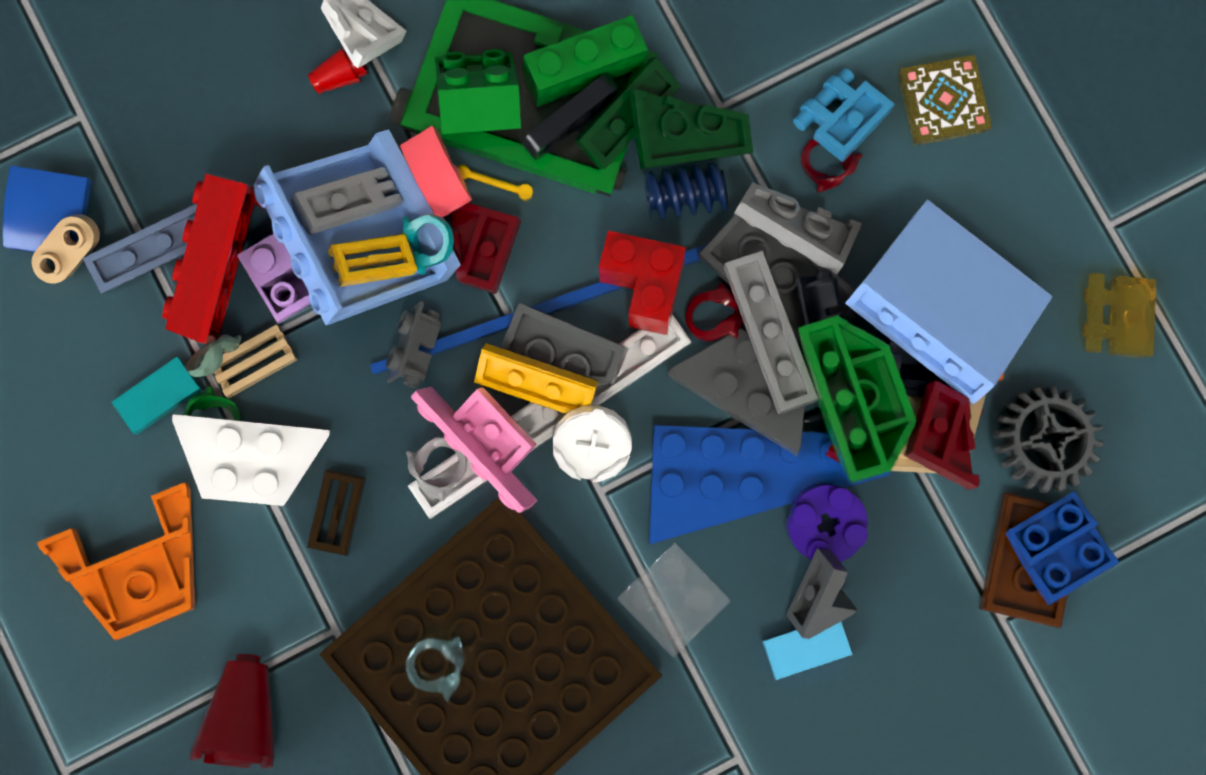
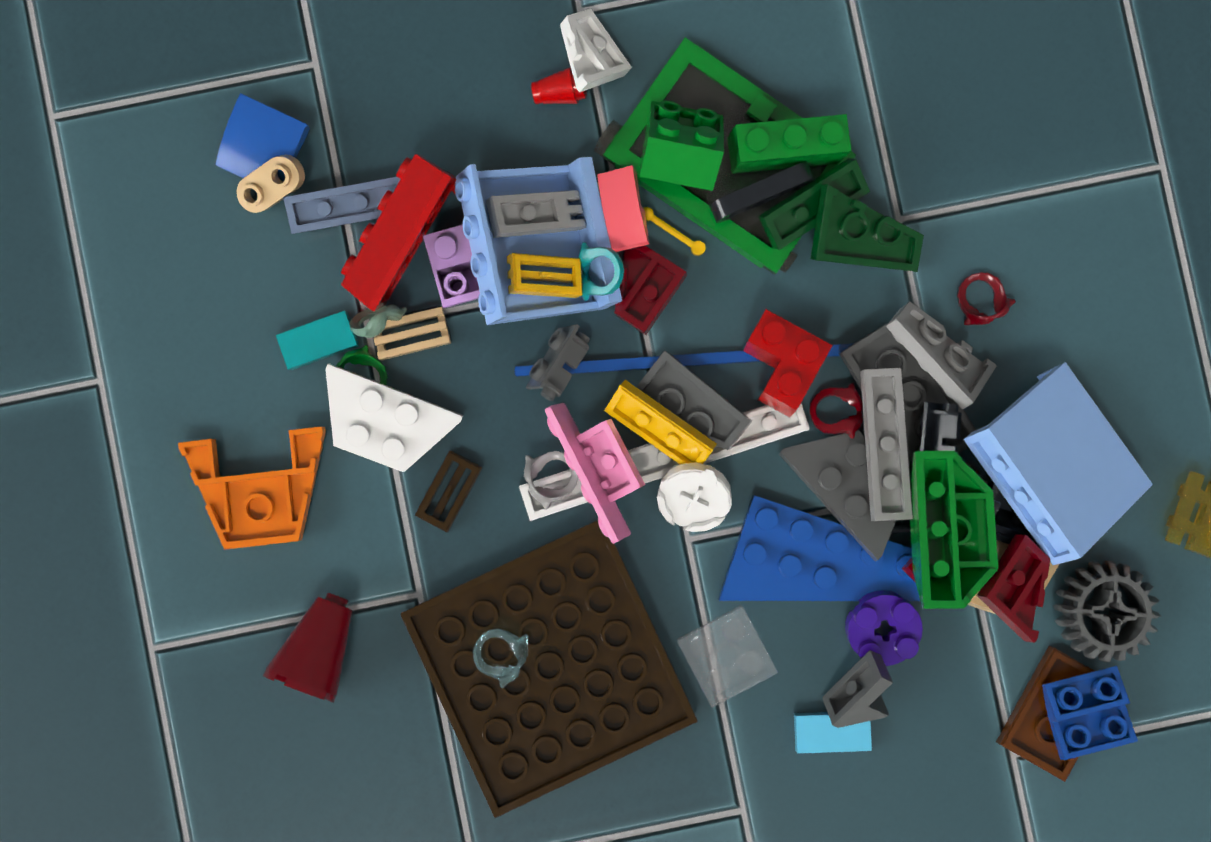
camera: 20 degrees right, 5 degrees up
(686, 190) = (845, 289): dark blue piece -> none
(852, 121) = (1018, 268): dark azure plate -> none
(944, 100) = (1107, 272): clear yellow tile -> none

